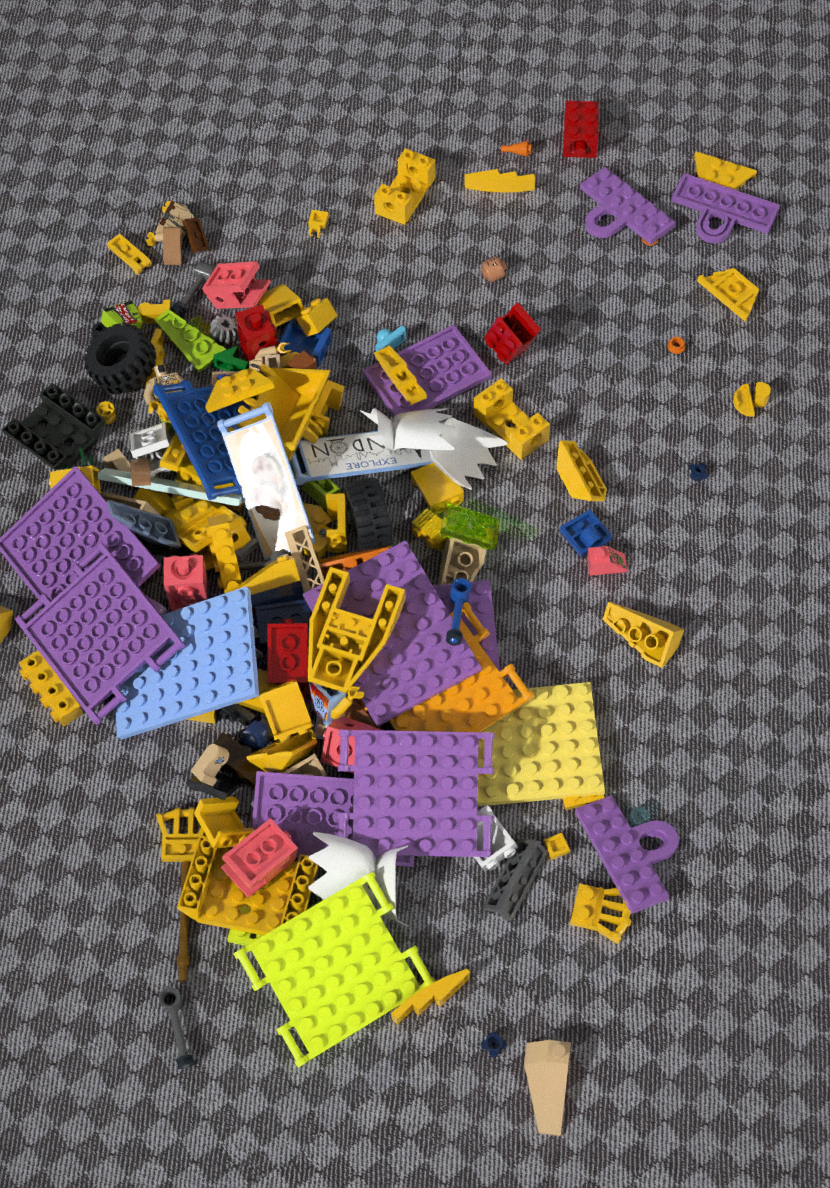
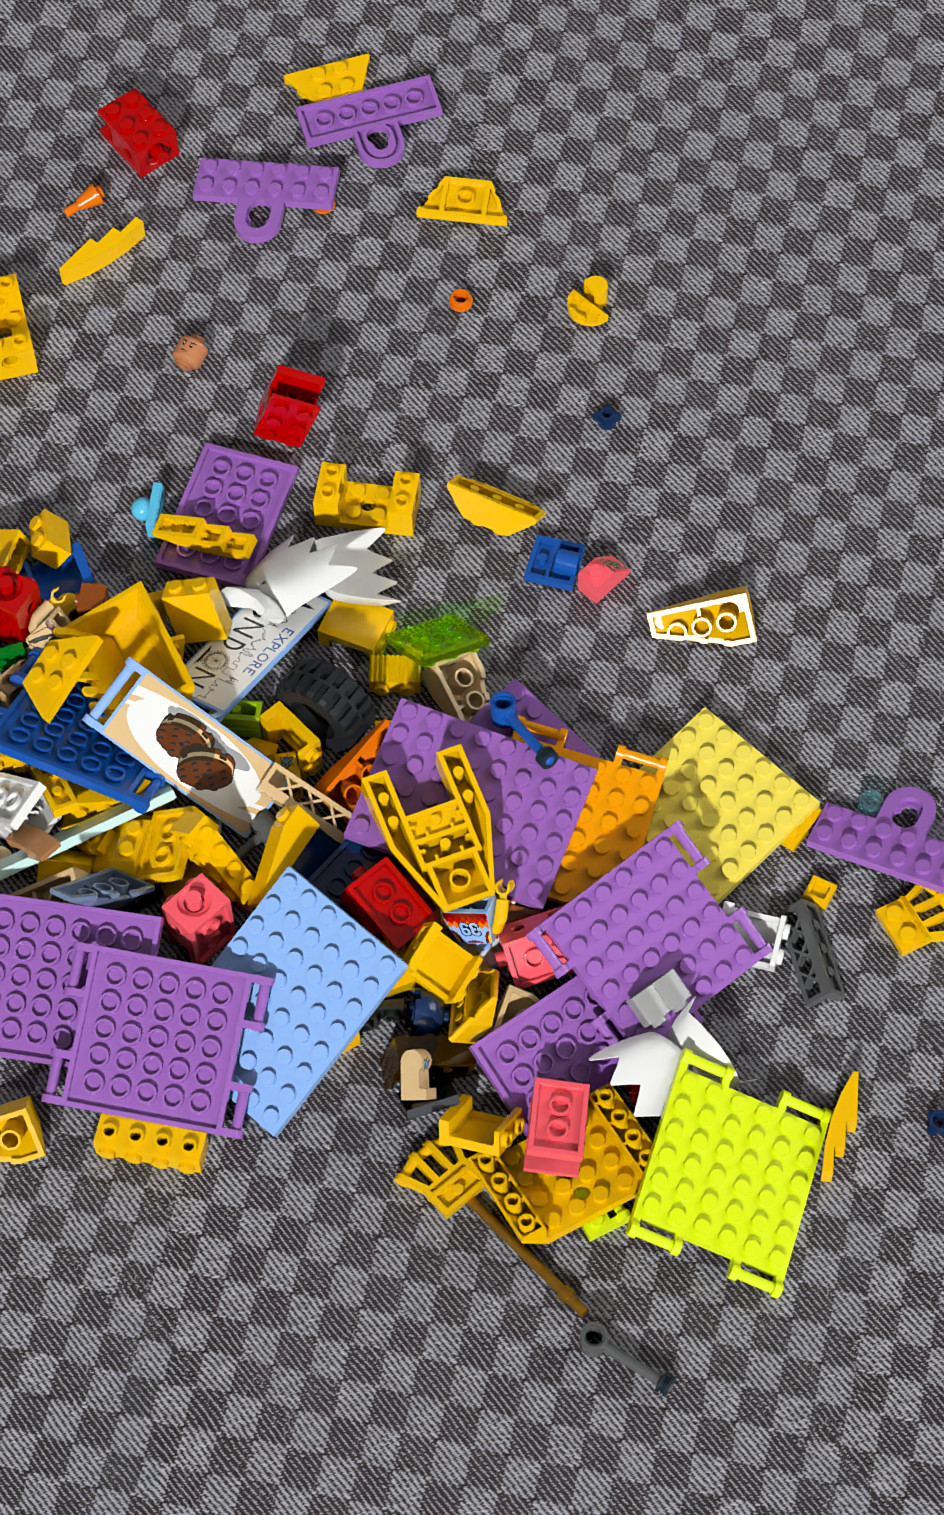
camera: 40 degrees left, 0 degrees up
(351, 411) = (197, 609): none -> yellow brick
(387, 830) = (659, 998): none -> light grey brick

